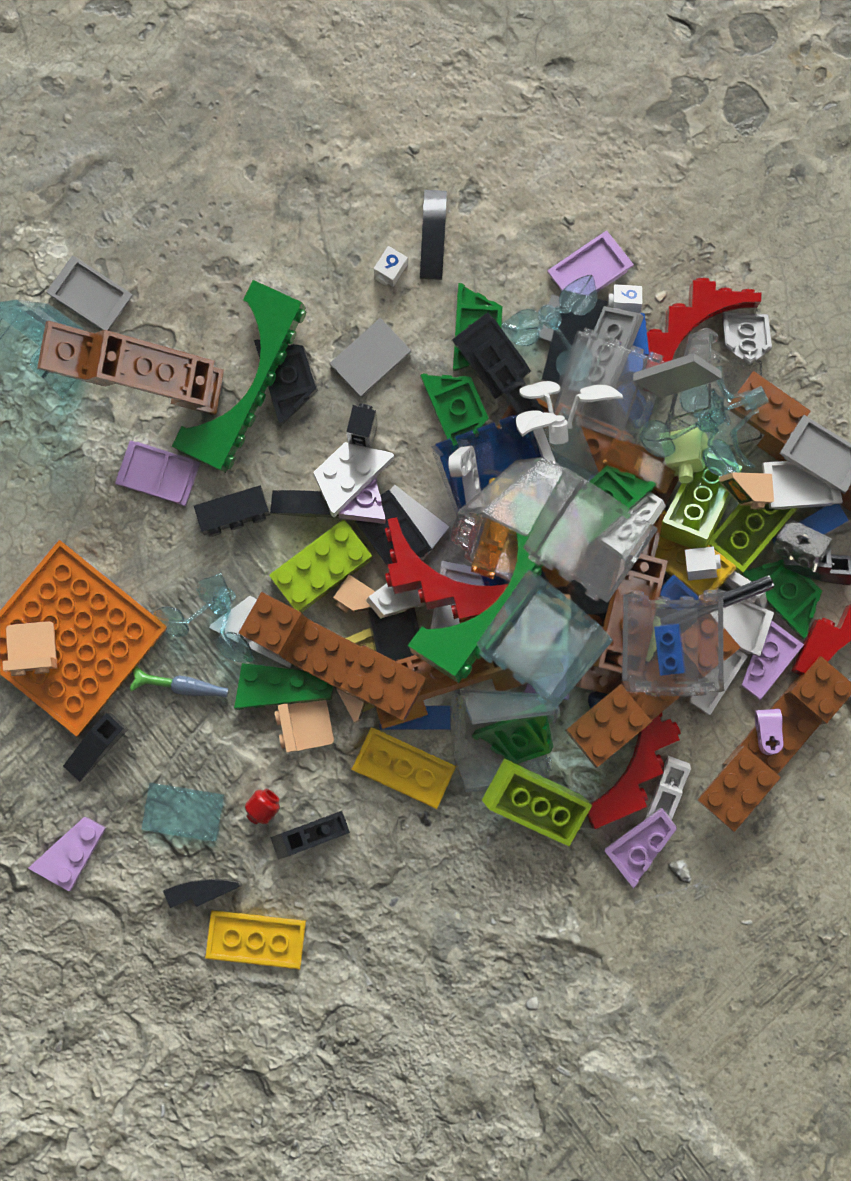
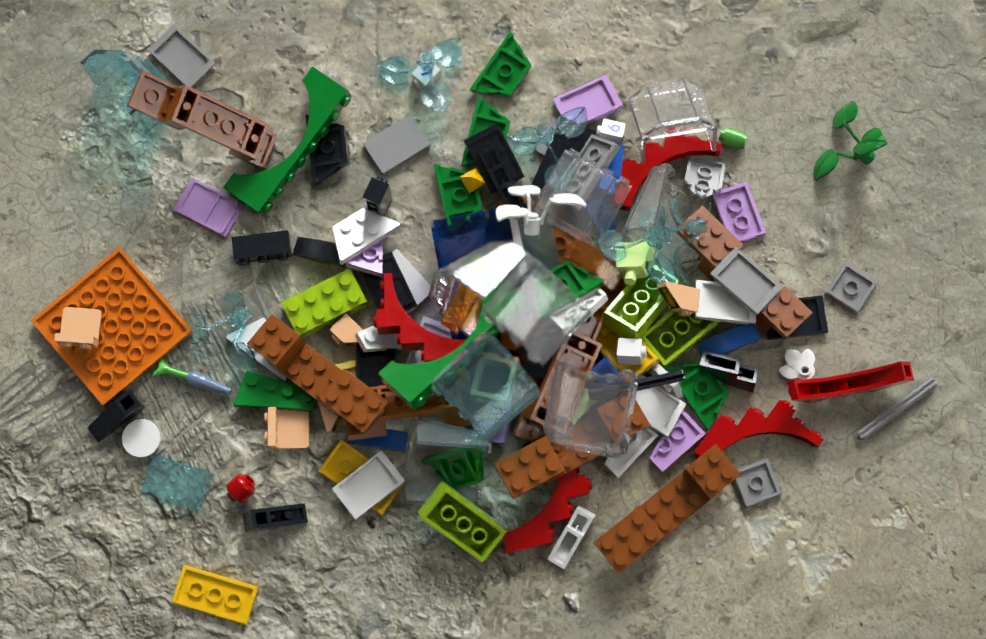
camera: 15 degrees right, 5 degrees down
(69, 855) = (79, 499): lavender wing -> none
(131, 767) = (141, 438): none -> white tile
(199, 890) = (177, 547): black slope -> none
(406, 291) = (438, 95): none -> clear light blue plant
(415, 776) = (368, 485): none -> white piece
(433, 234) = (465, 55): black slope -> none
(463, 464) = (453, 238): white beam -> none
(471, 386) = (472, 180): none -> yellow slope
(482, 245) = (503, 70): none -> green wing
(640, 846) = (542, 573): lavender wing -> none
(669, 649) = (589, 413): blue brick -> none
(677, 375) = (633, 196): light grey tile -> none
(694, 263) = (668, 111): none -> clear windscreen
(768, 726) = (664, 495): lavender piece -> none
(771, 283) = (733, 138): none -> bright green brick
(794, 370) = (738, 212): none -> lavender tile
(802, 544) = (716, 351): clear smoke brick -> none

